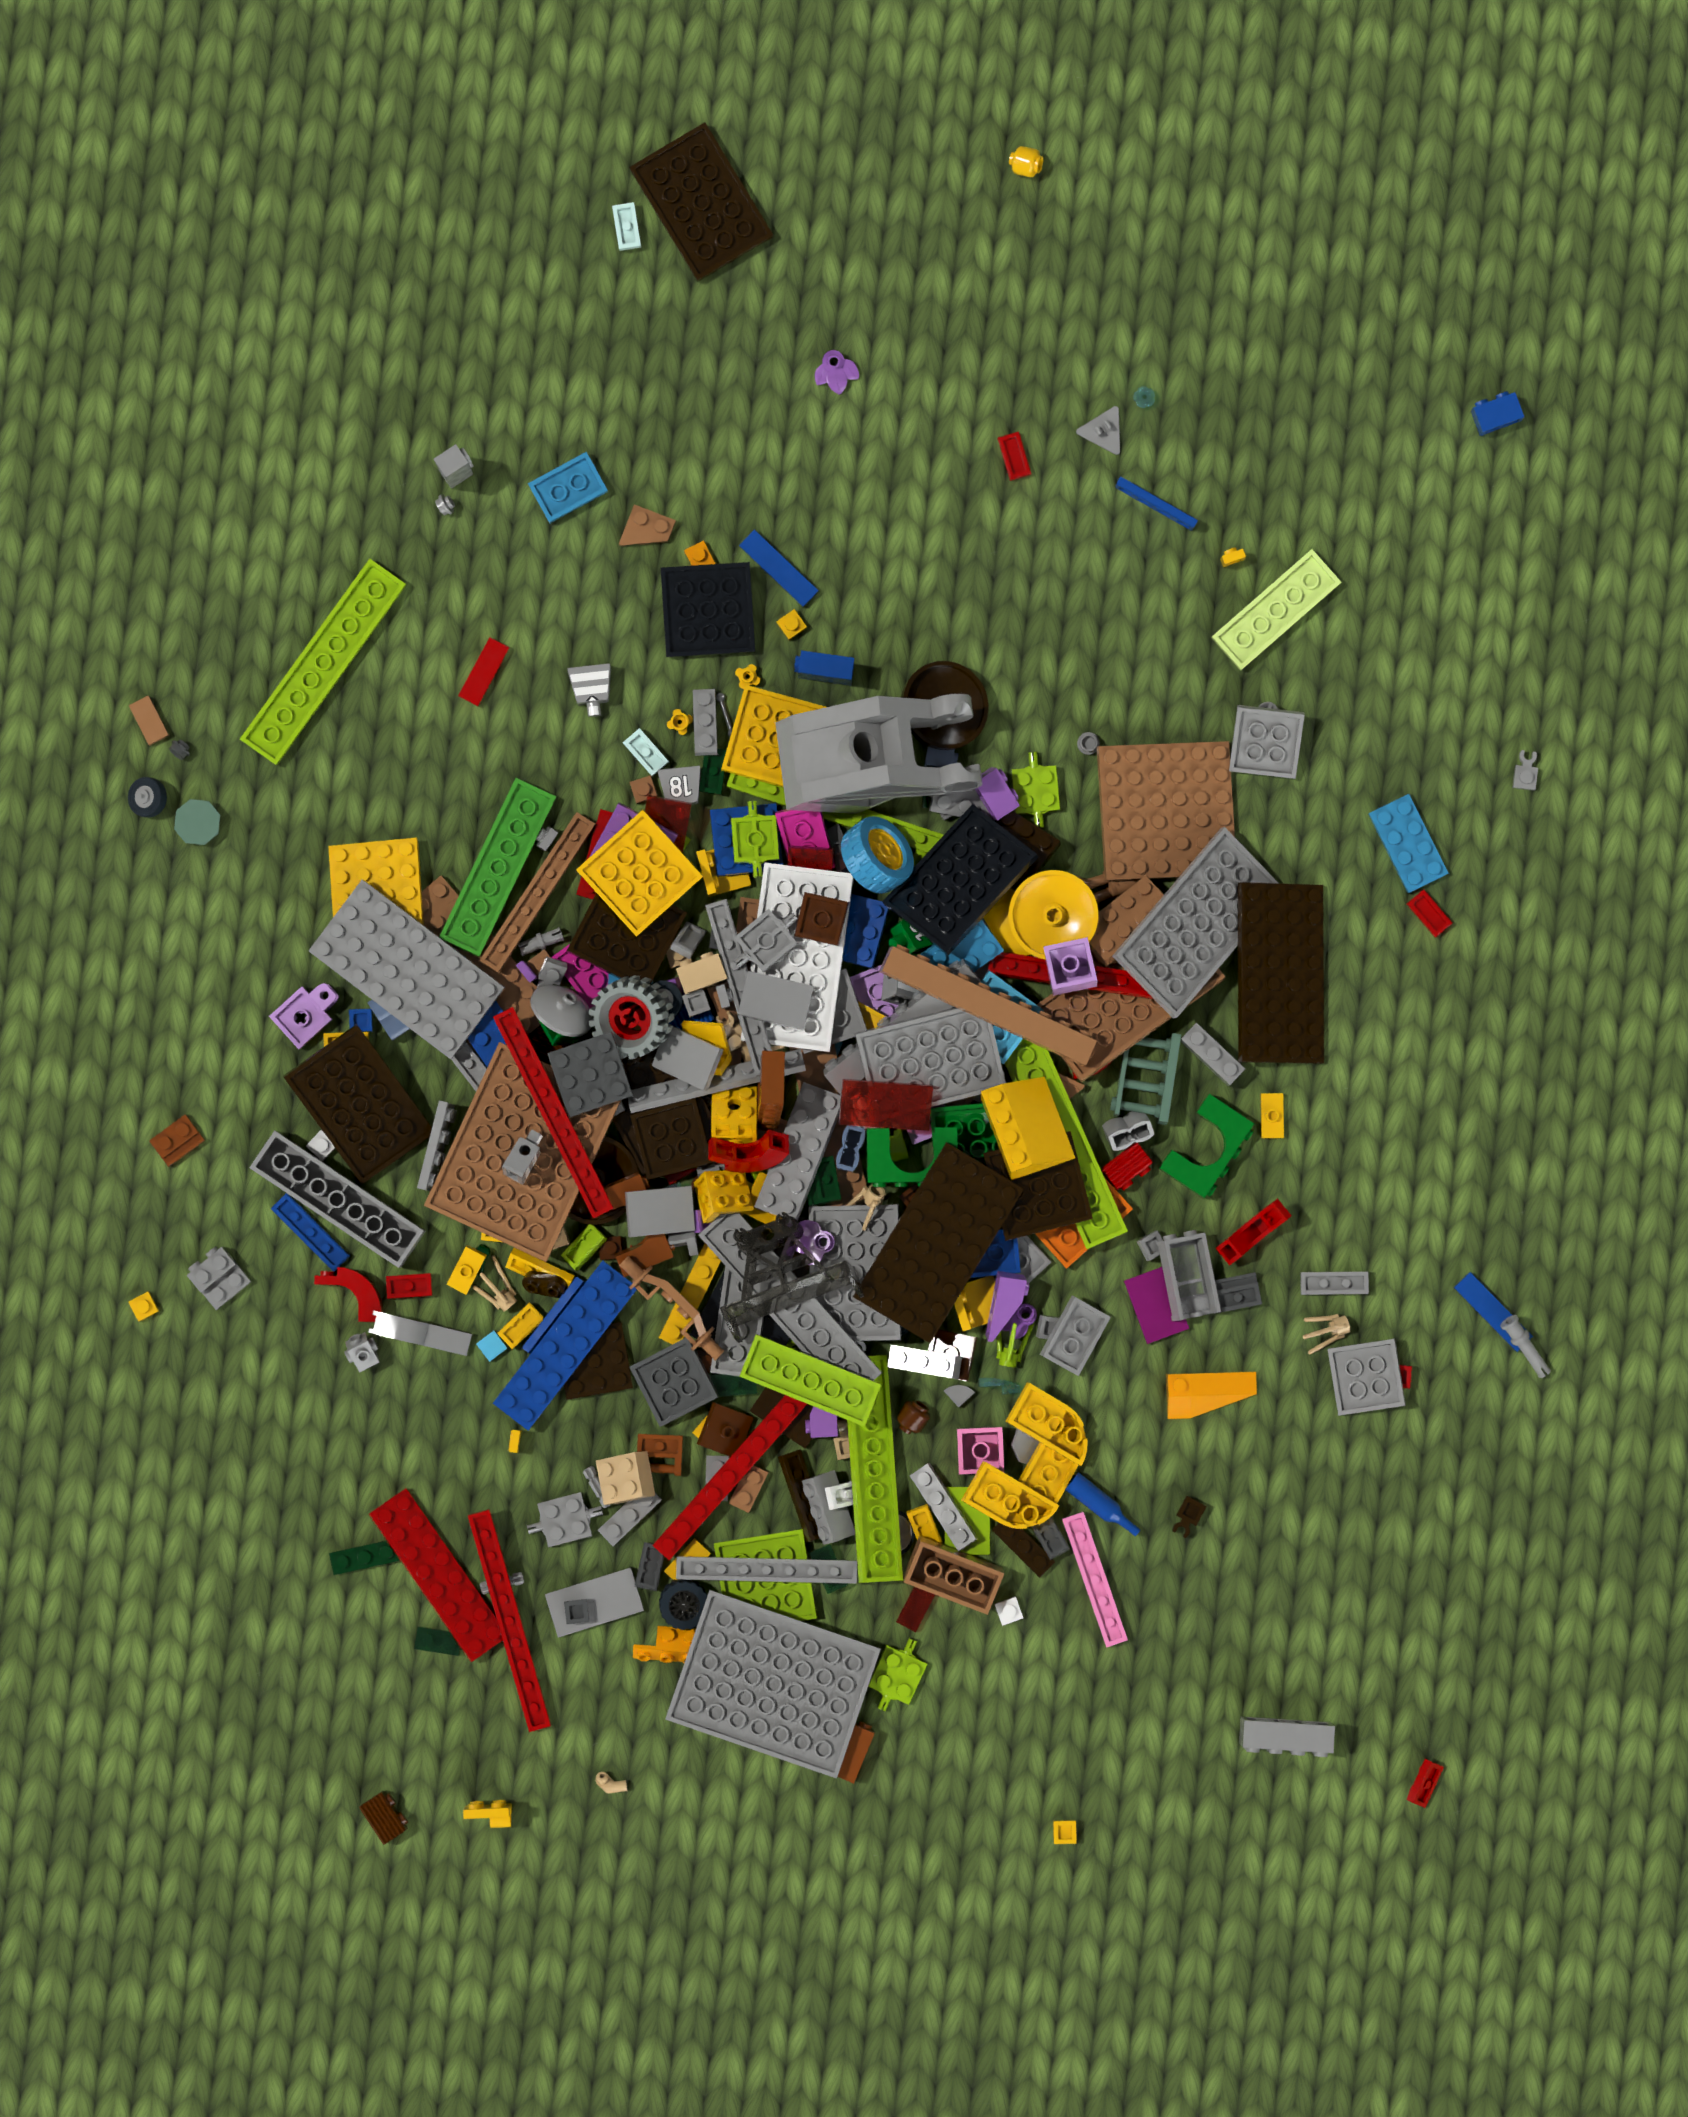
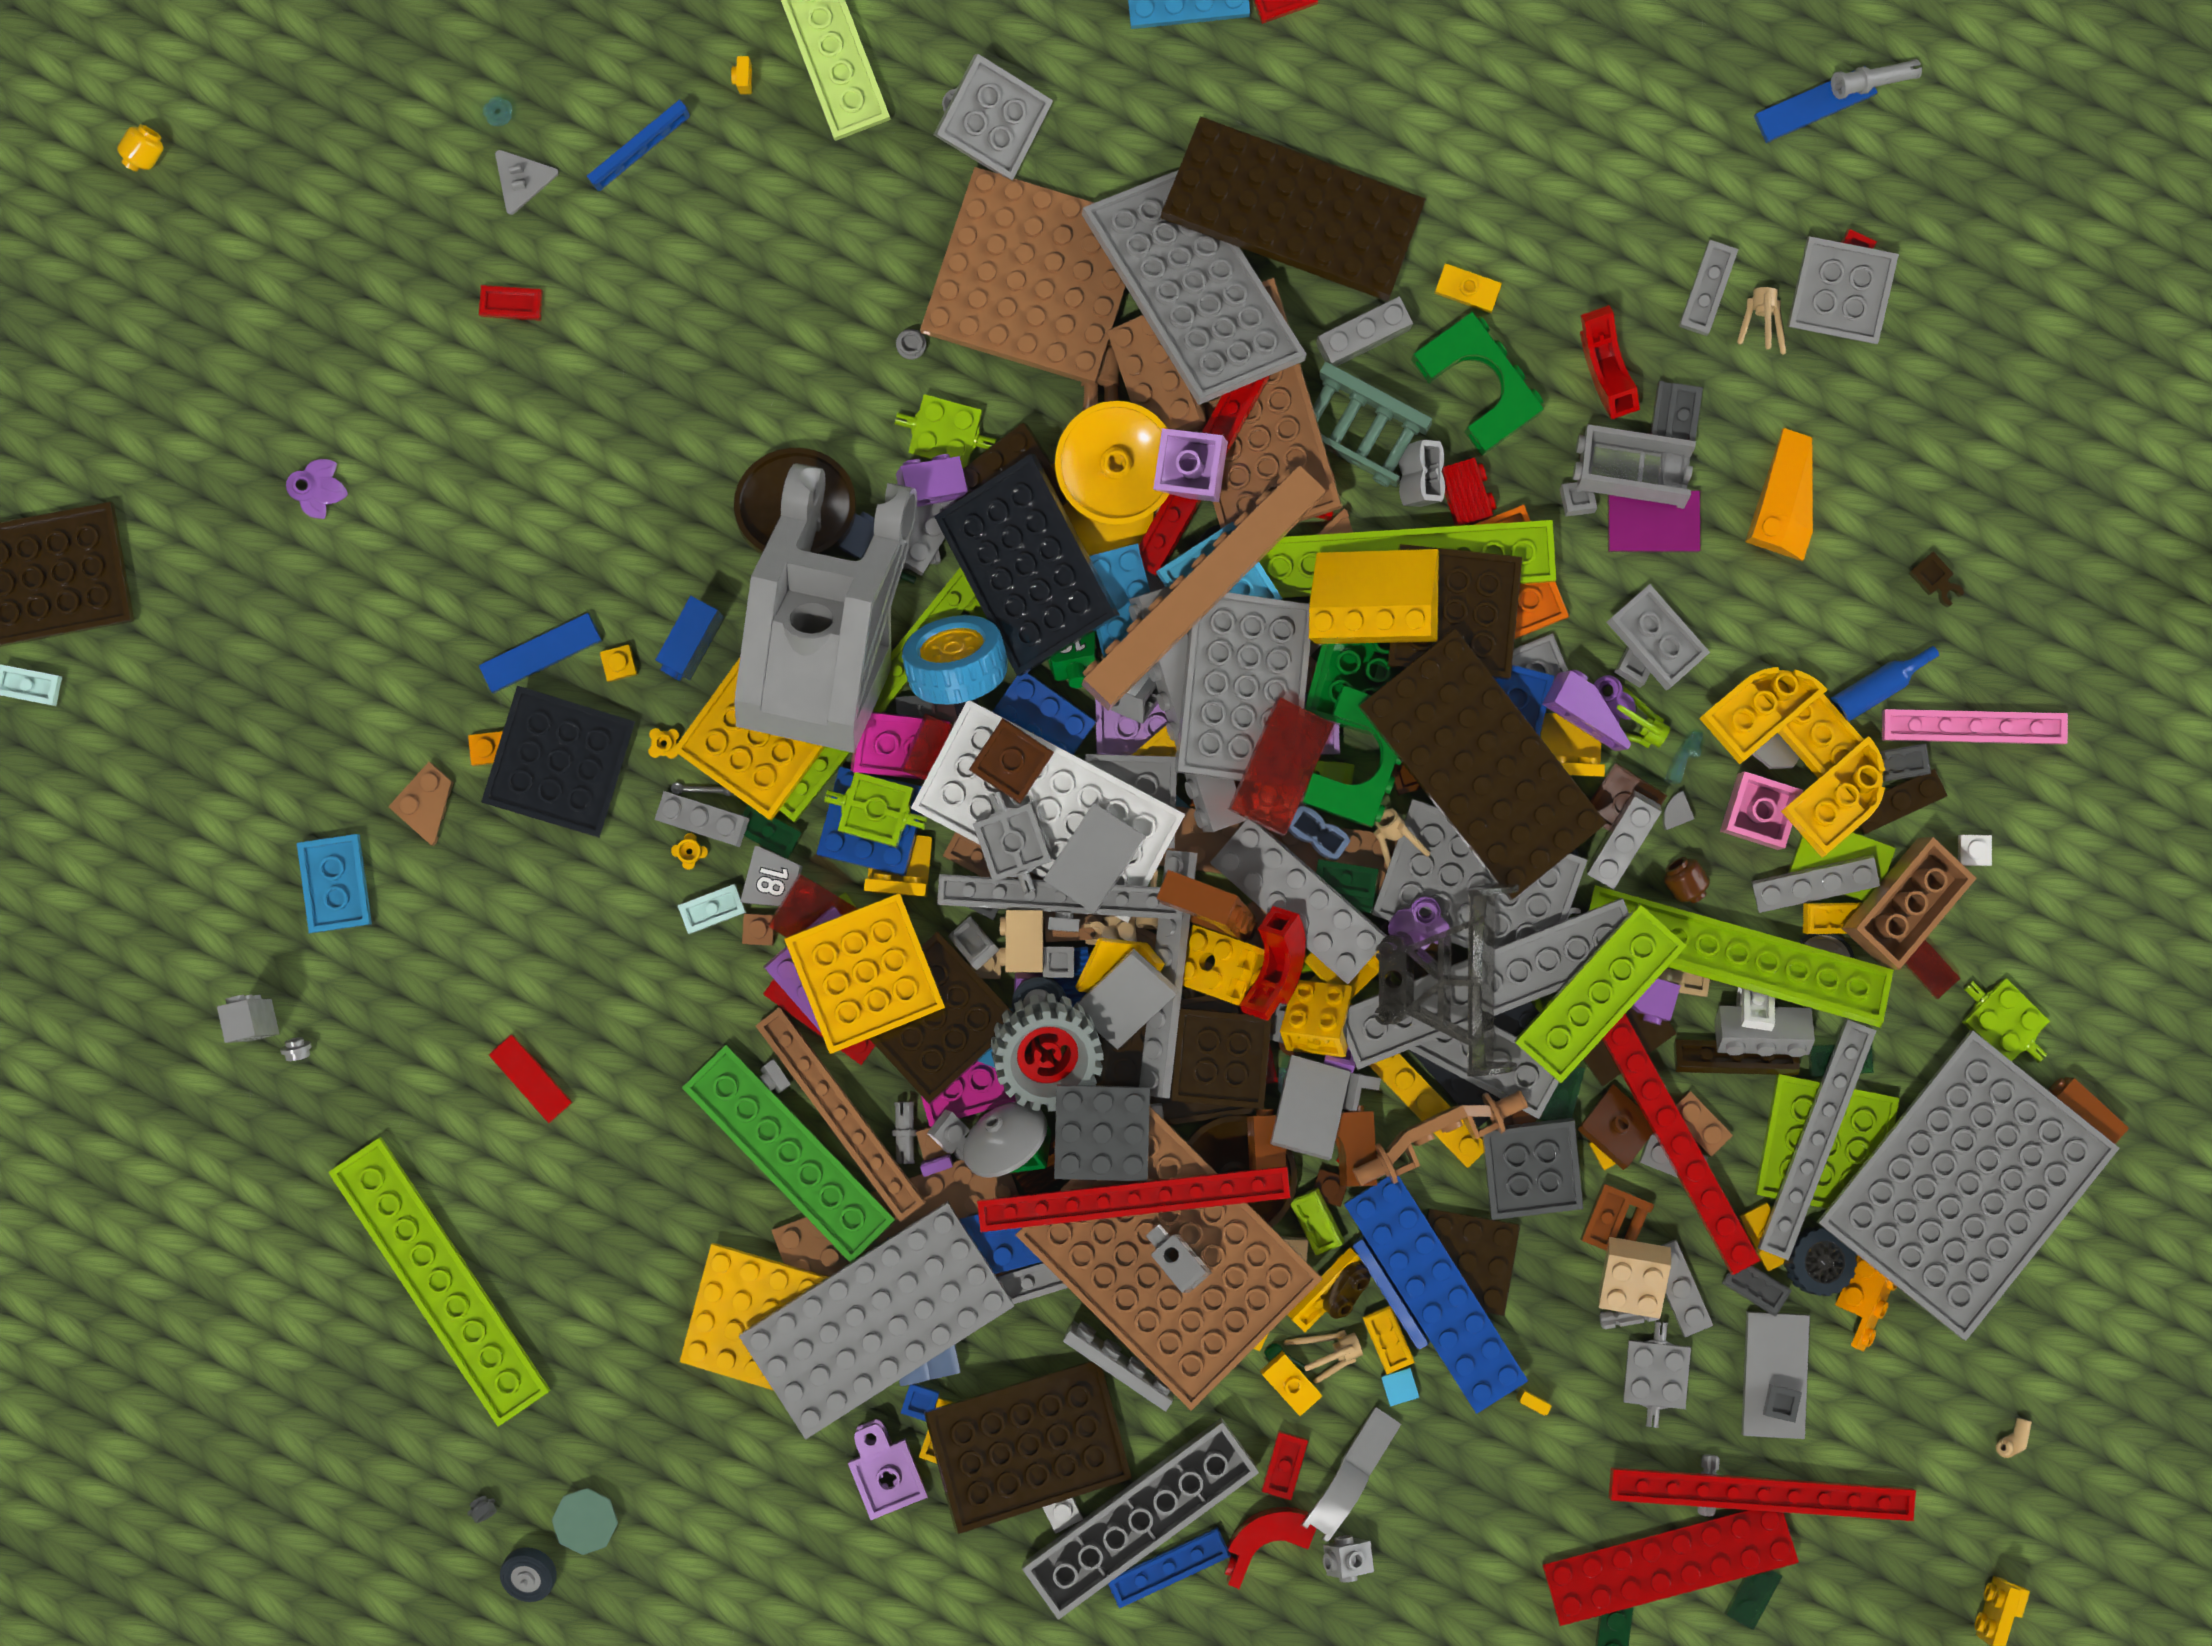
camera: 65 degrees left, 0 degrees up
(148, 720) = (430, 1535): medium nougat tile -> none
(591, 686) = (600, 947): torso -> none

